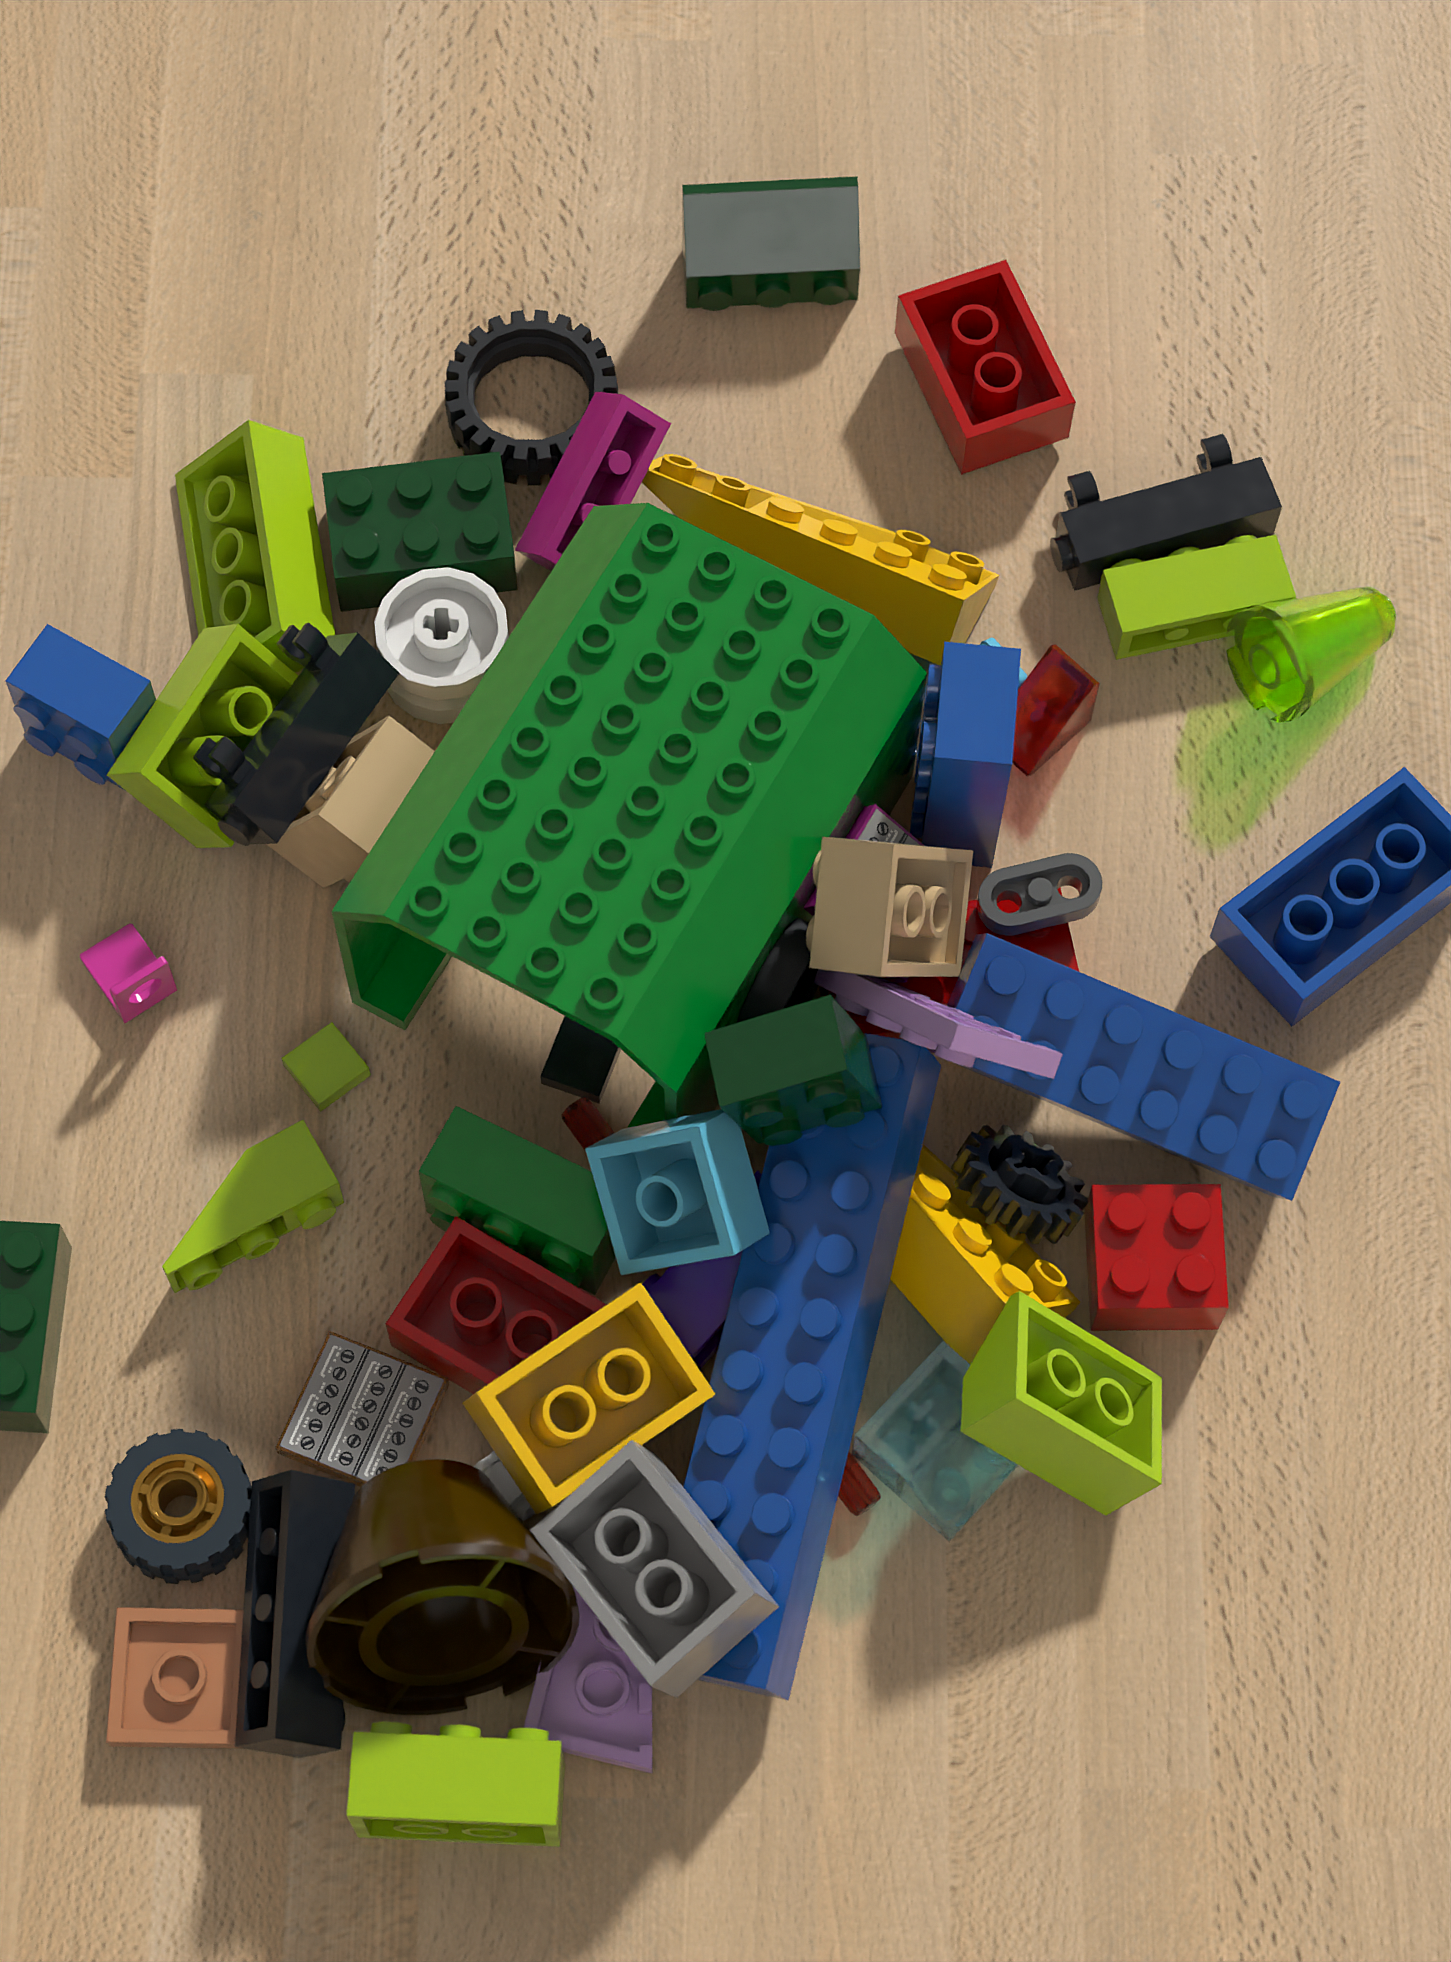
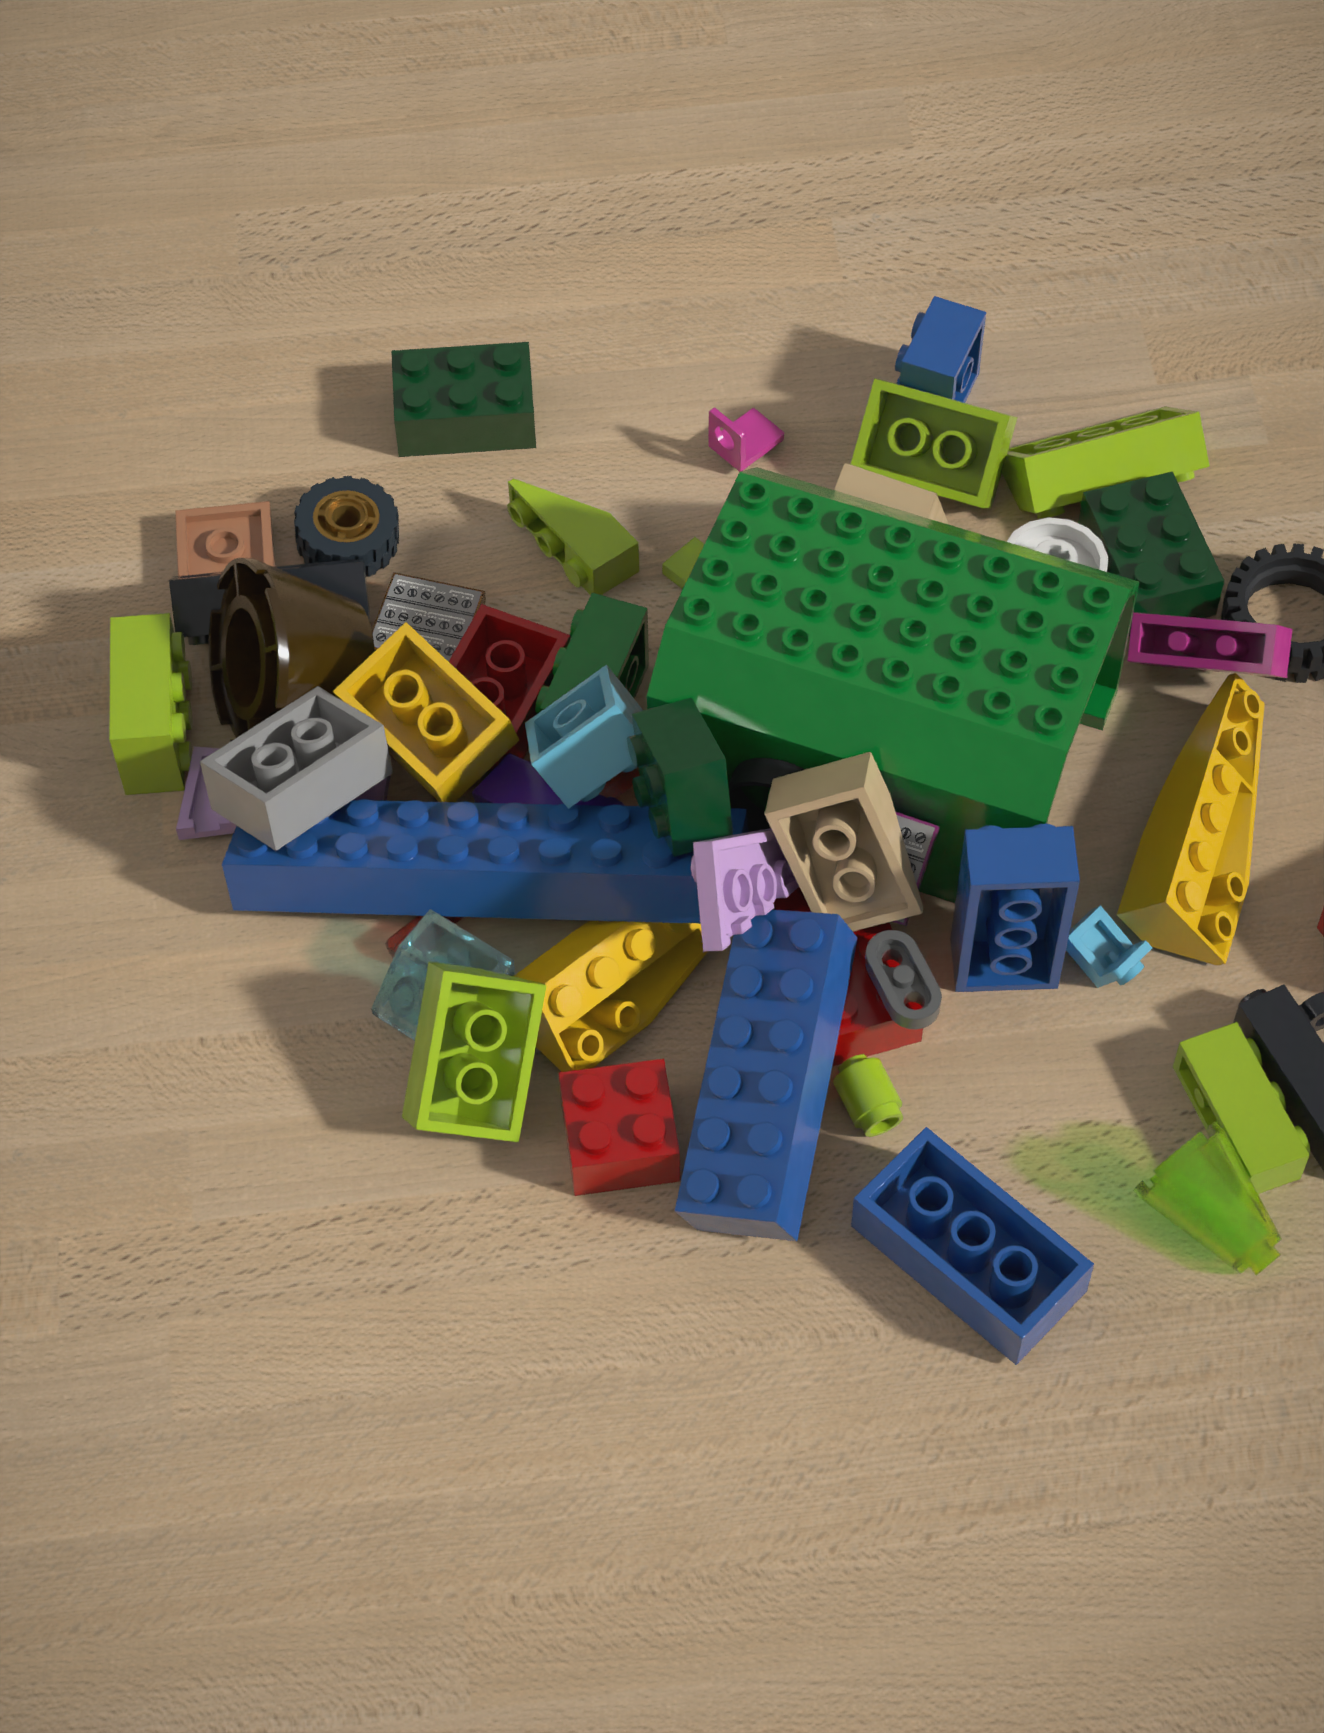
camera: 85 degrees right, 10 degrees down
(300, 738) = (963, 494): black brick -> none
(1019, 1184) = (661, 1015): black gear -> none
(1051, 709) = (1098, 1004): clear red slope -> none
(1142, 970) = (868, 1095): none -> lime brick

